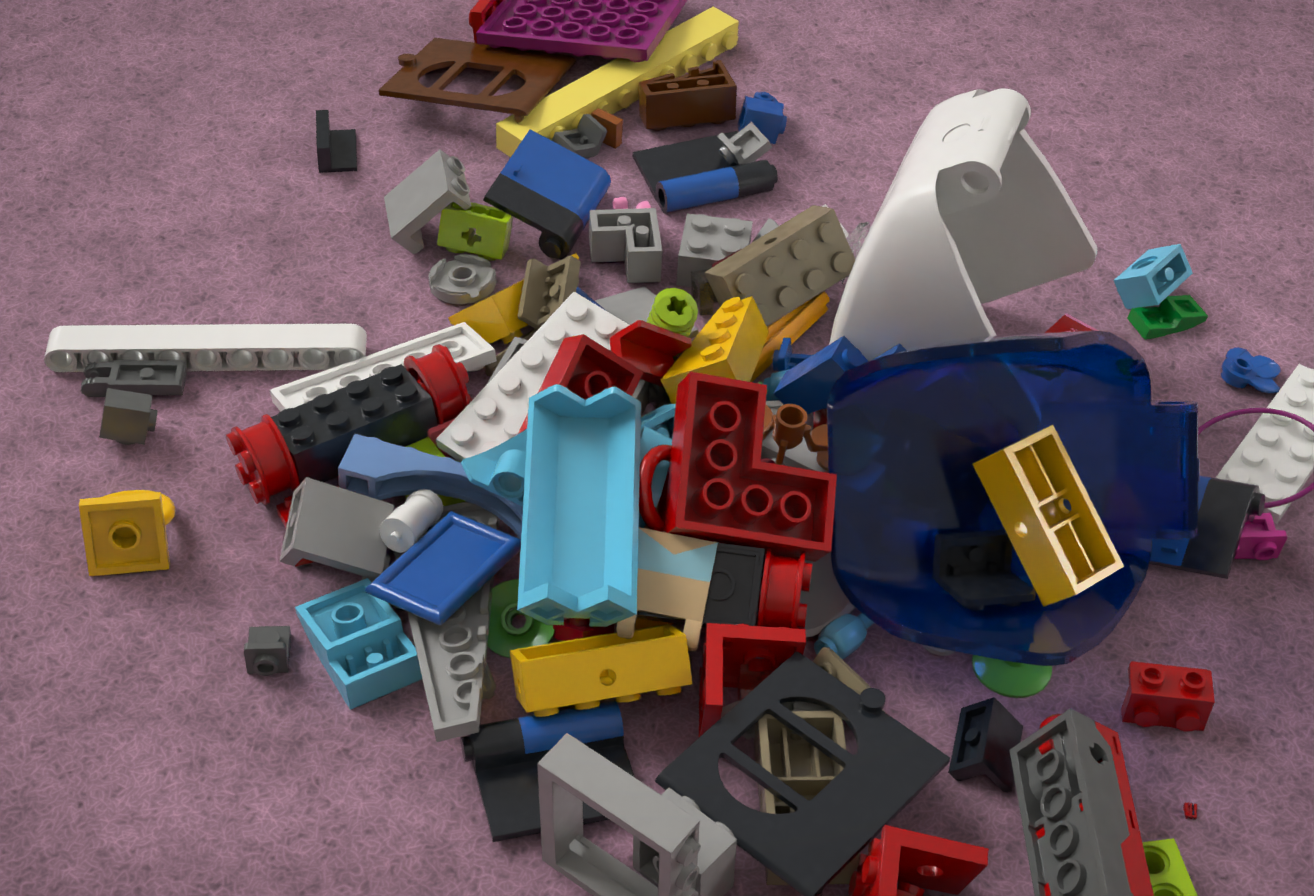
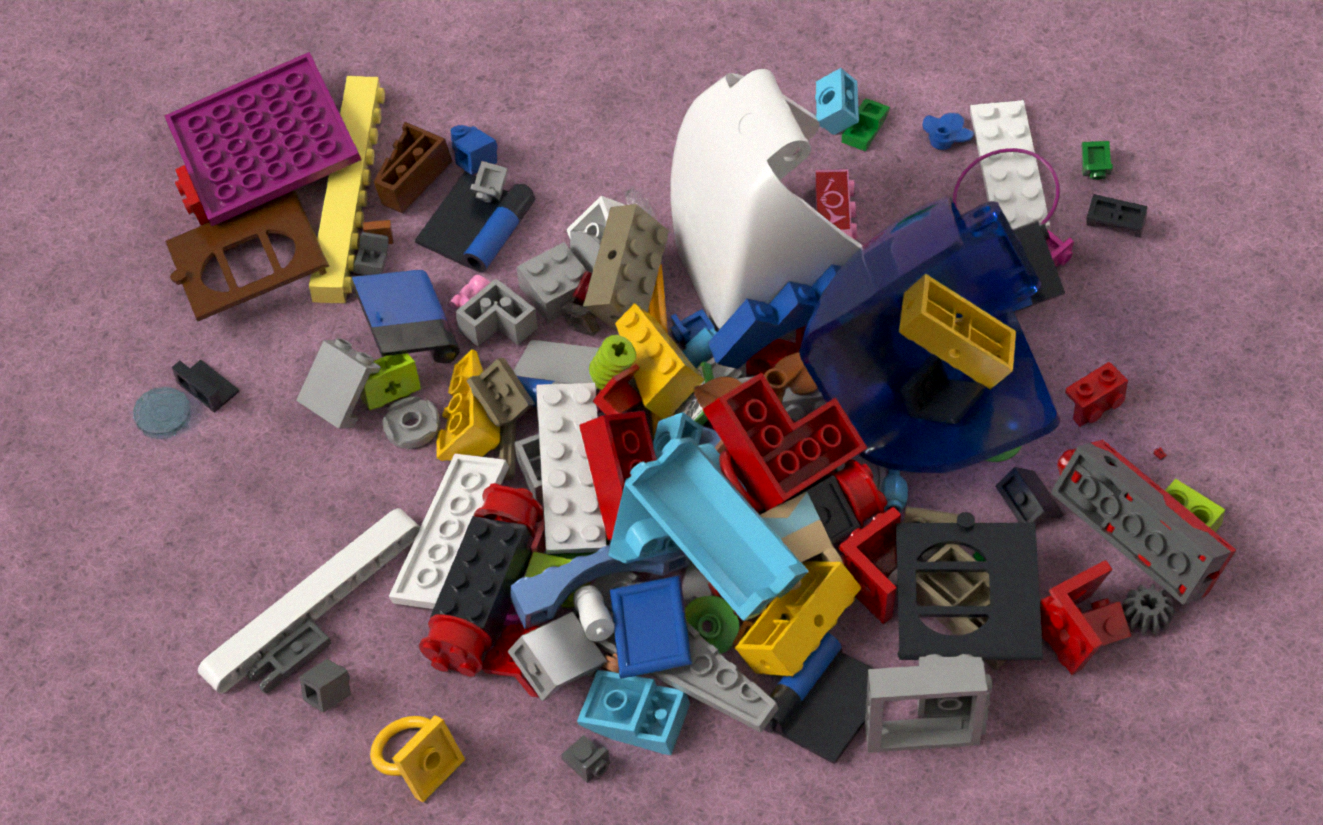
camera: 35 degrees left, 10 degrees up
(277, 144) = (162, 412): none -> clear light blue tile

